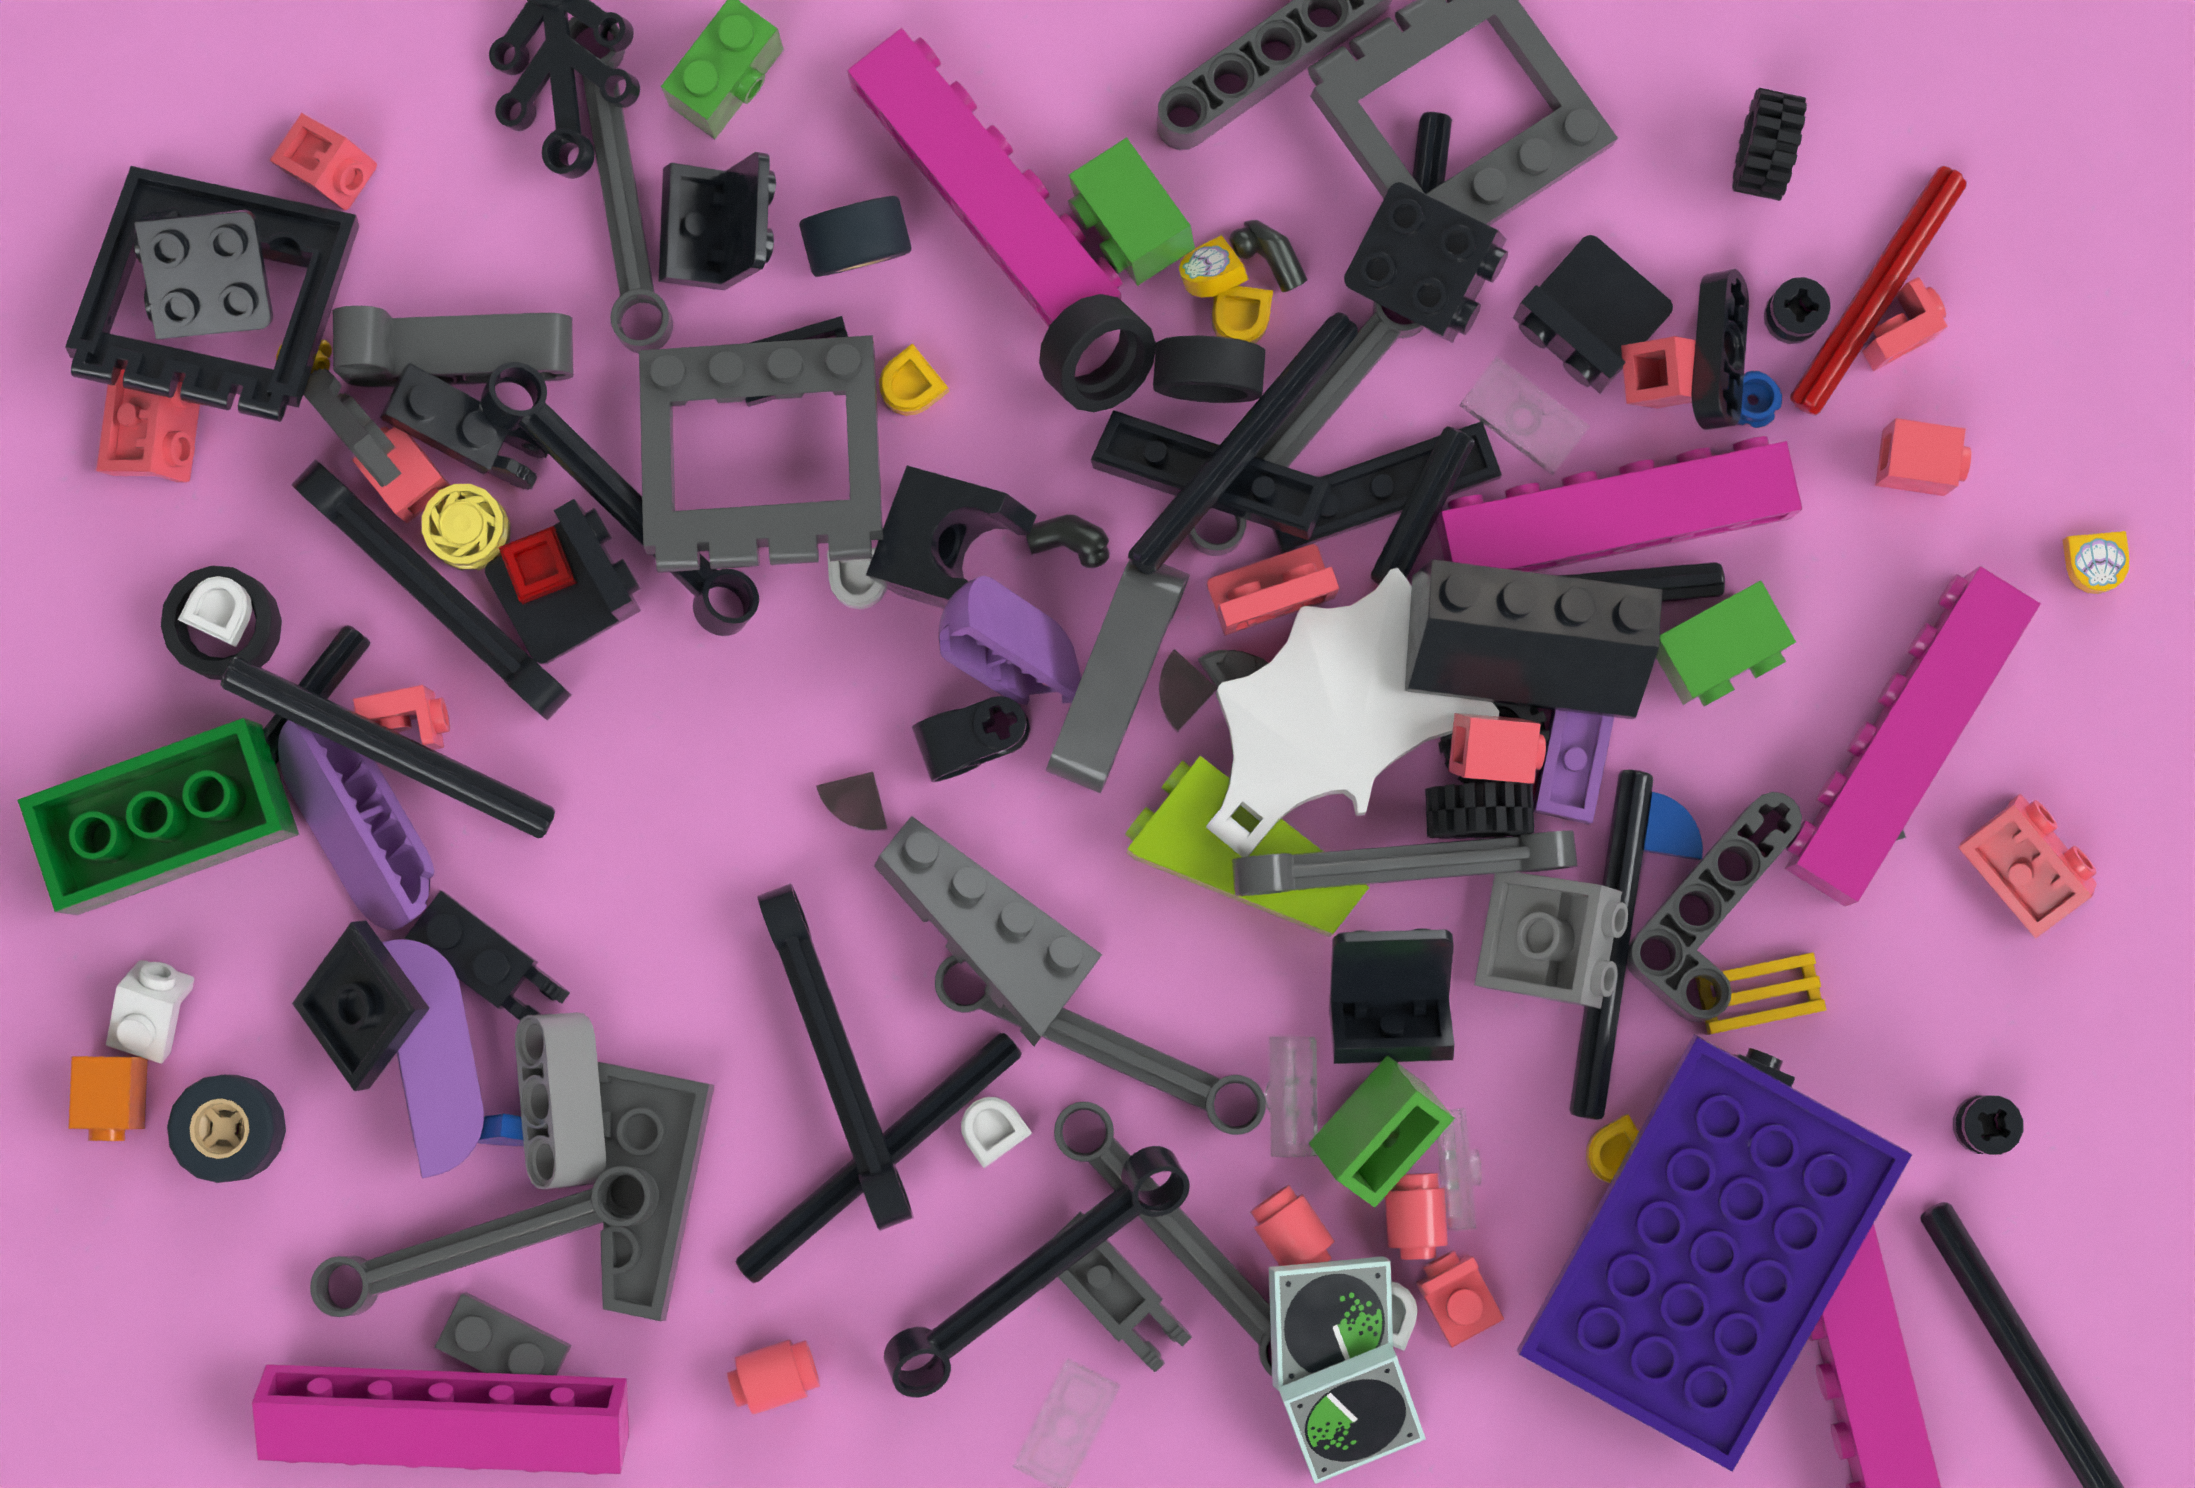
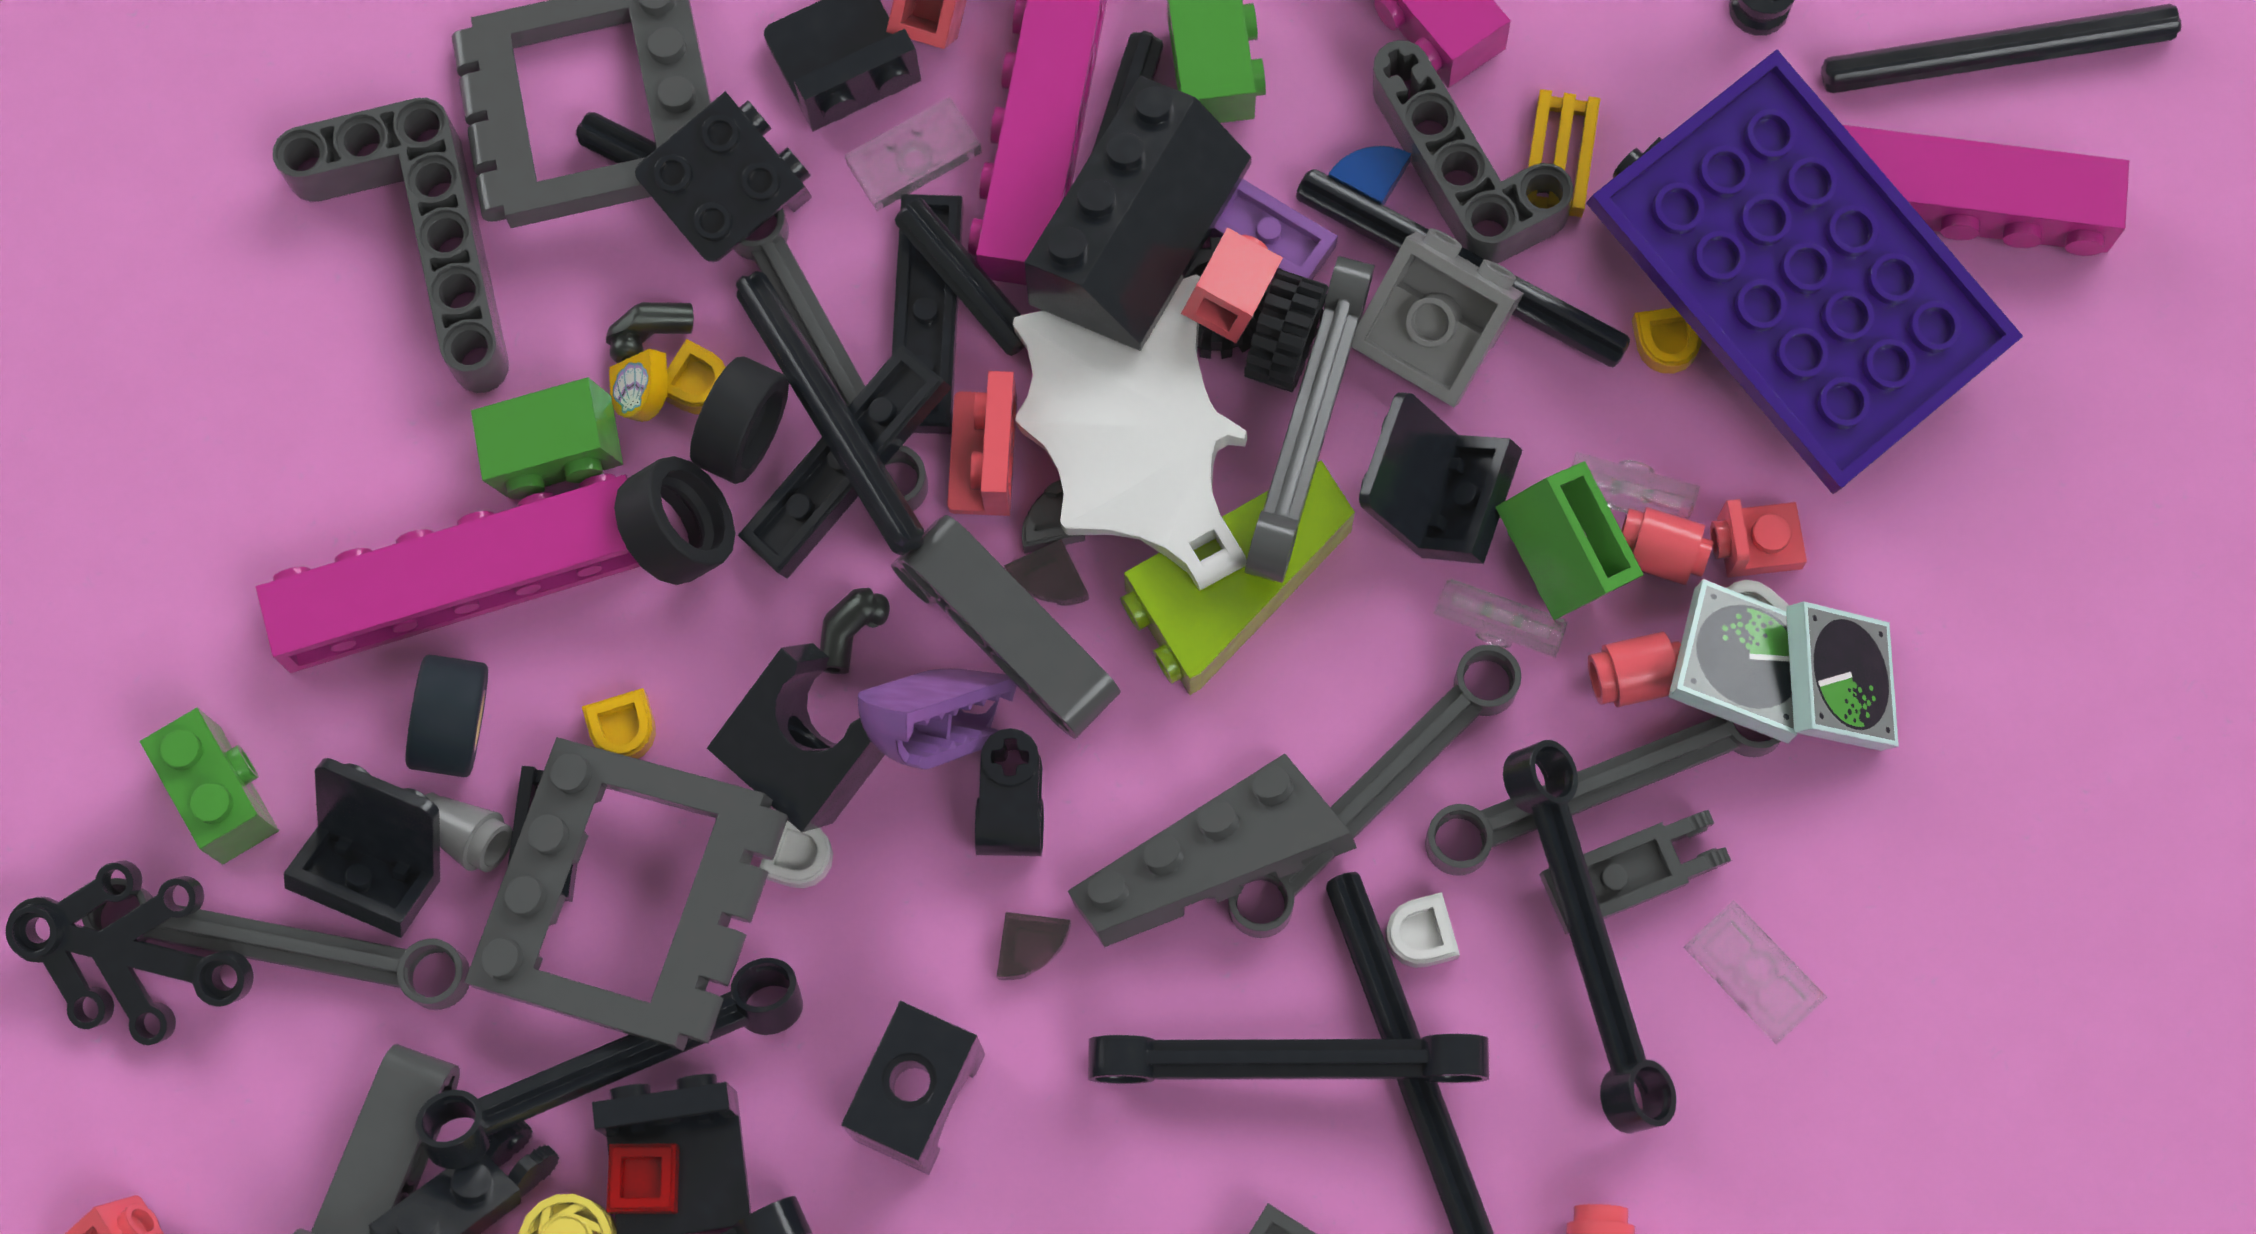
camera: 65 degrees left, 10 degrees down
(724, 761) = (912, 1128): none -> black piece
(768, 296) = (472, 834): none -> light grey cone

